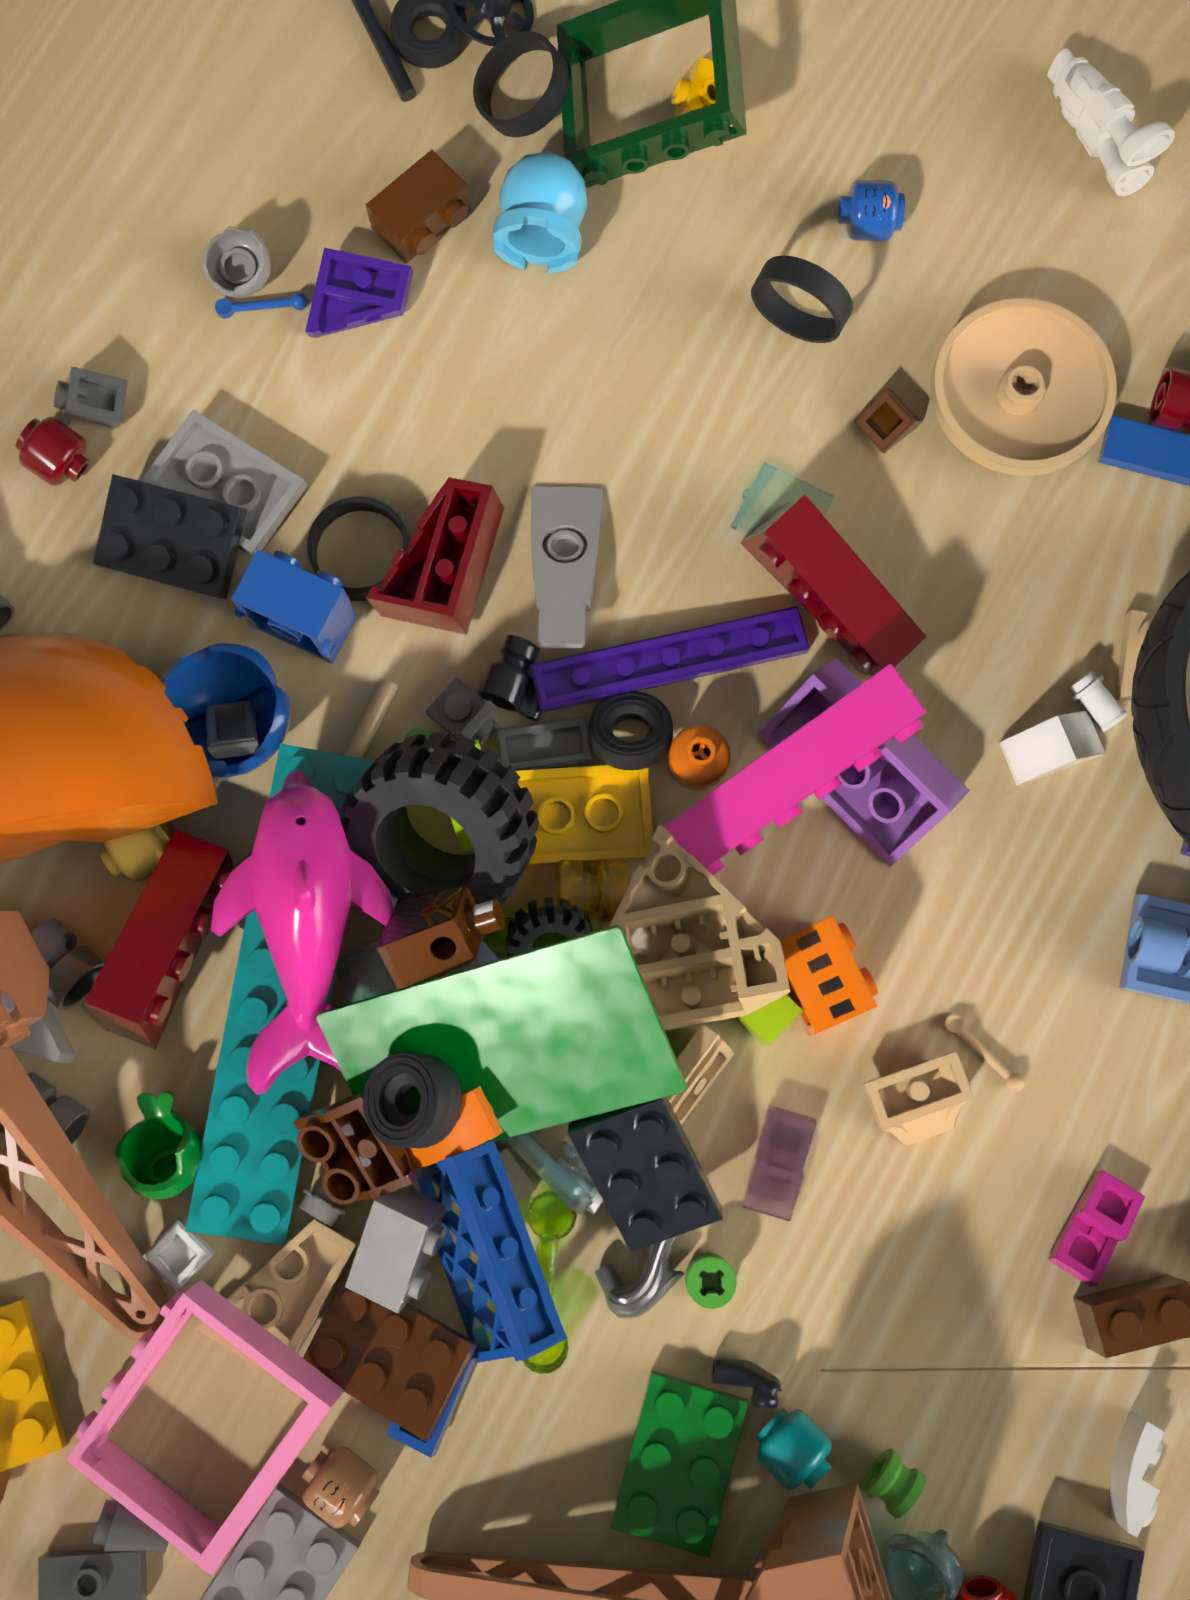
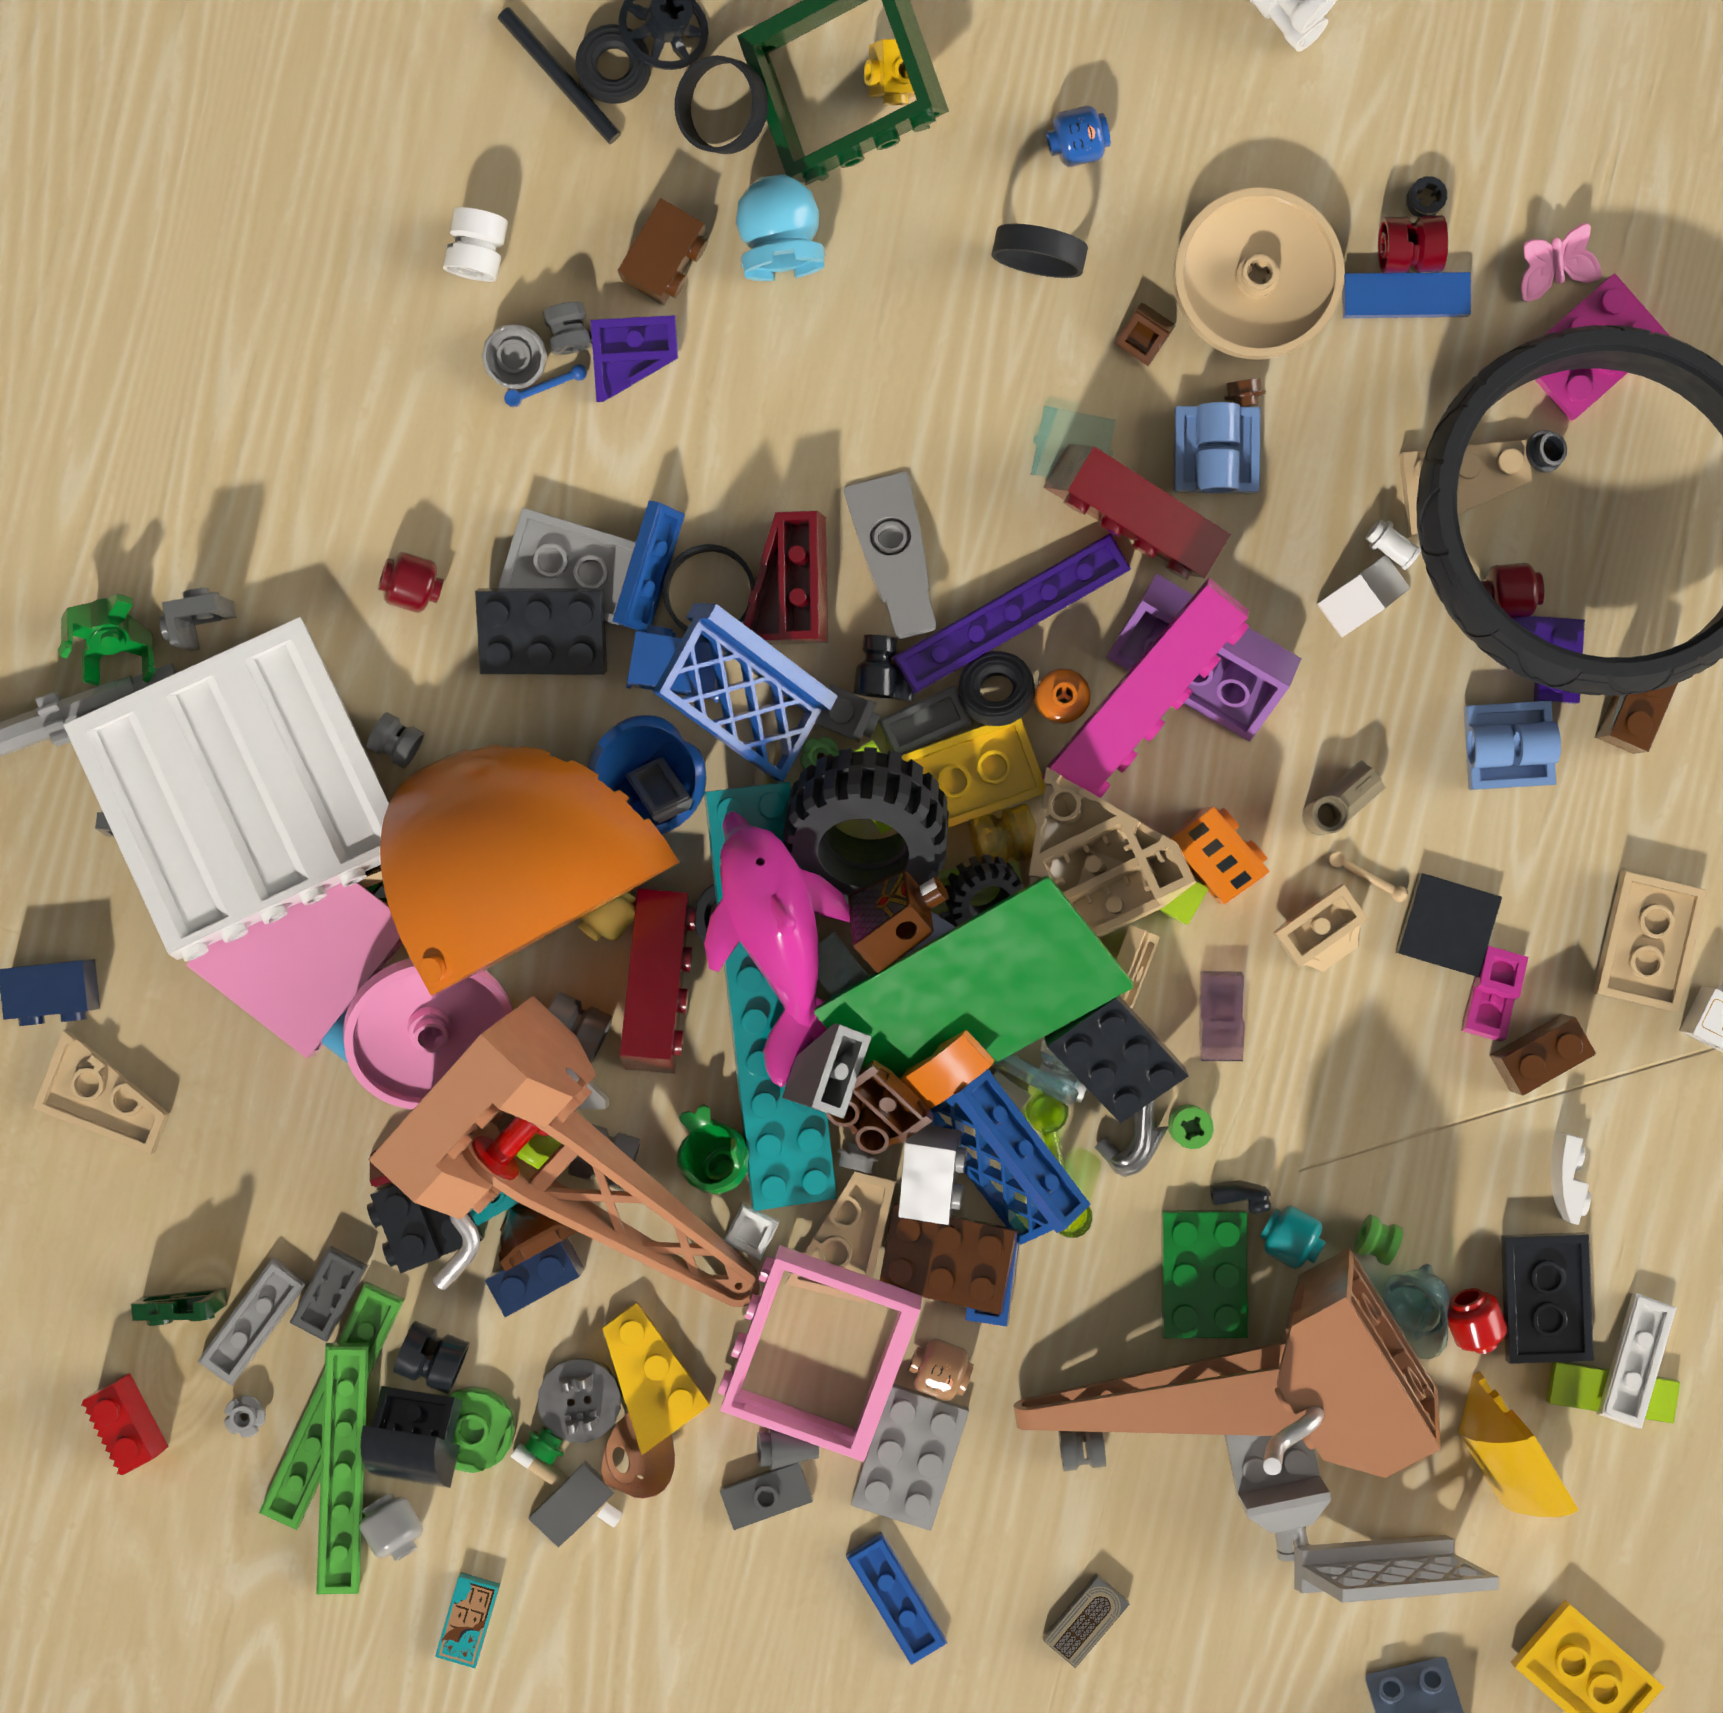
camera: 15 degrees left, 10 degrees up
(91, 397) = (425, 522): dark grey bracket -> none
(234, 148) = (475, 244): none -> white wheel
(300, 250) = (567, 328): none -> dark grey wheel
(304, 498) = (648, 566): none -> blue tile
(310, 1089) = (827, 1070): none -> dark grey slope
(379, 615) = (754, 656): none -> fence
(438, 1100) = (938, 1053): black tyre -> none
(934, 550) = (1216, 449): none -> medium blue plate
(977, 503) = (1244, 392): none -> reddish brown plate
(978, 957) = (1344, 798): none -> dark tan piece
(1062, 1133) = (1448, 924): none -> black tile

